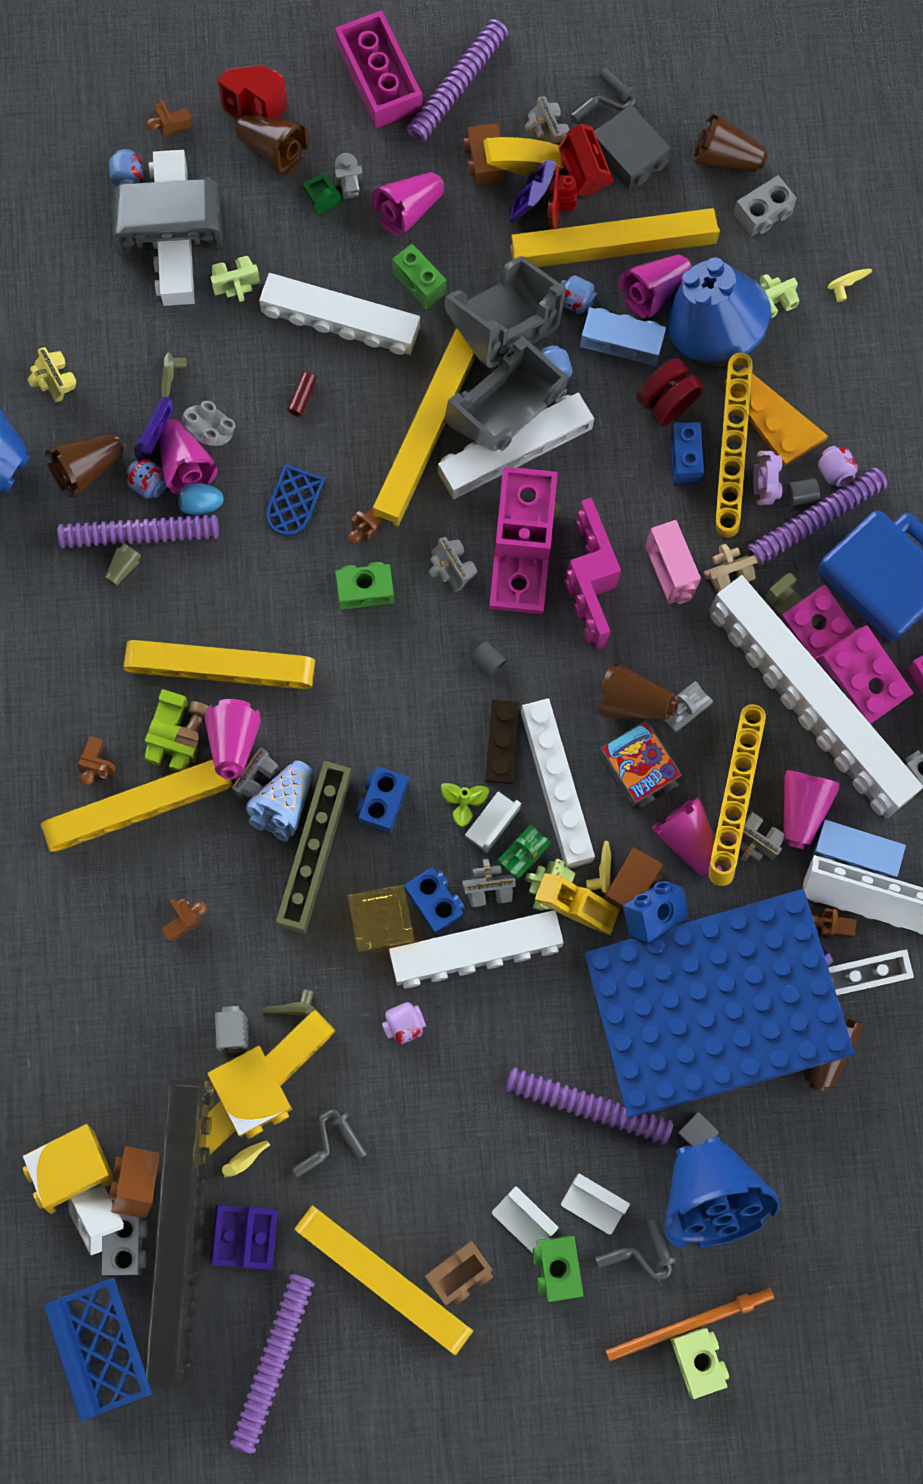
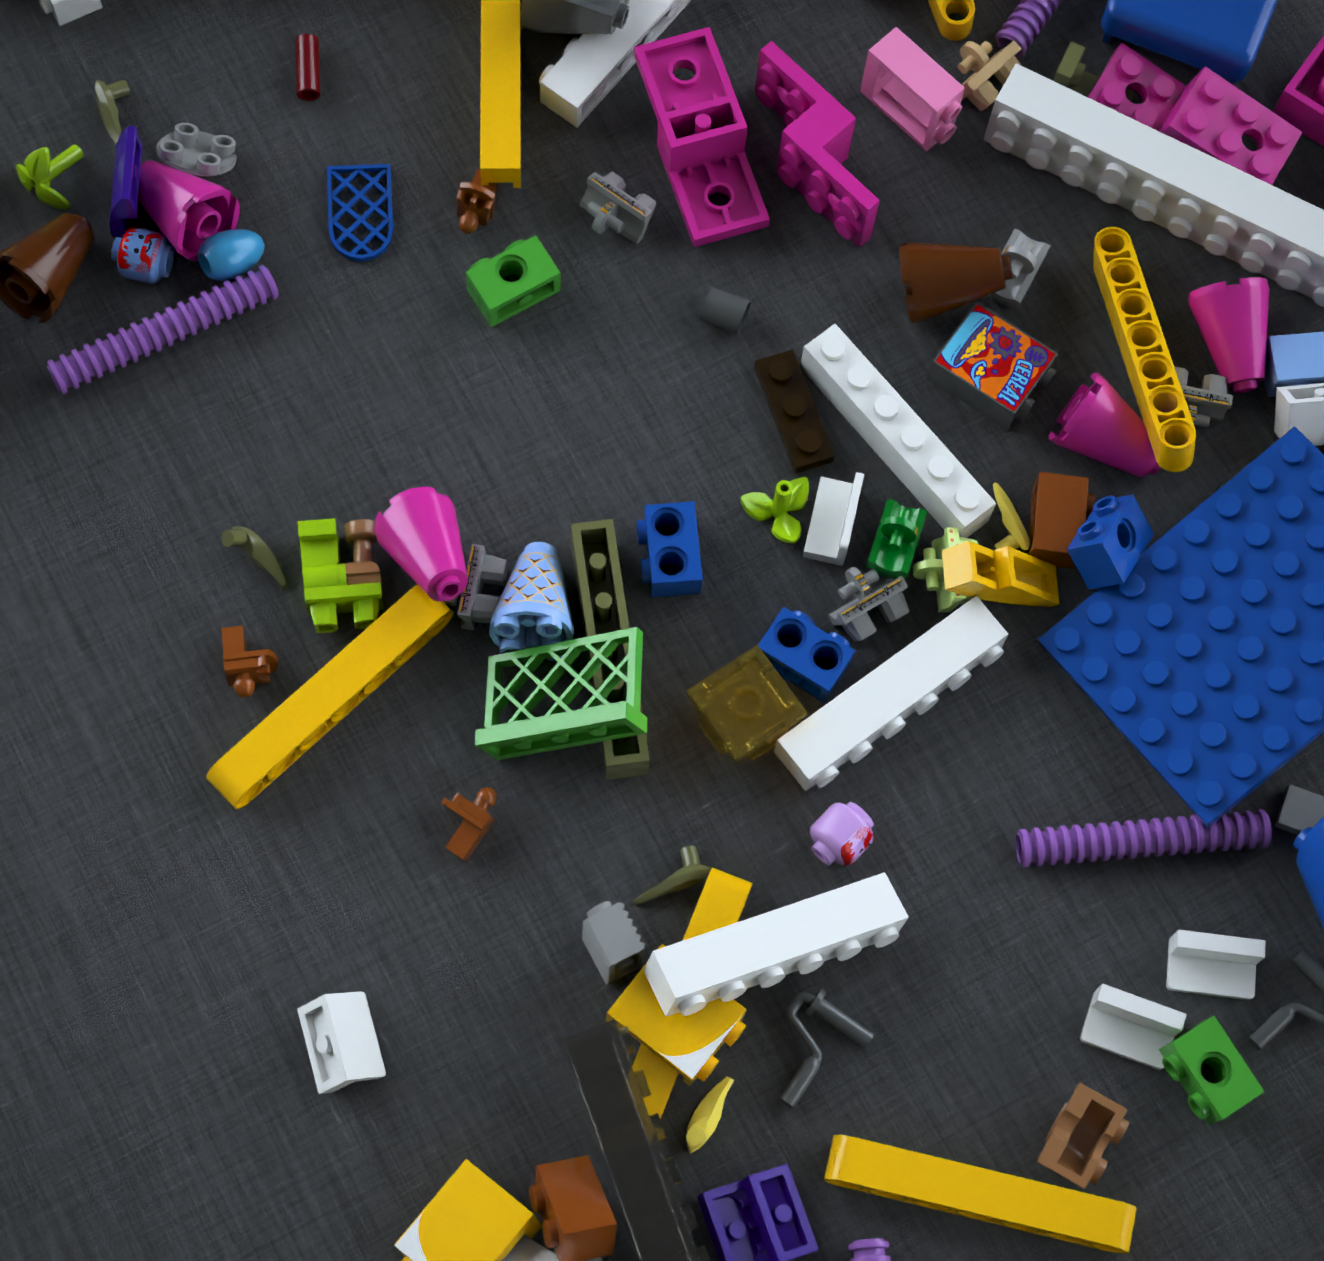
camera: 25 degrees left, 5 degrees down
(50, 1019) = (341, 1040): none -> white panel
(106, 401) = (40, 171): none -> lime plant
(122, 564) = (161, 379): olive cone -> none
(133, 693) = (255, 549): none -> olive bar
(219, 664) = (358, 461): yellow beam -> none
(266, 889) = (559, 728): none -> bright green fence
(327, 1076) = (775, 945): none -> white brick

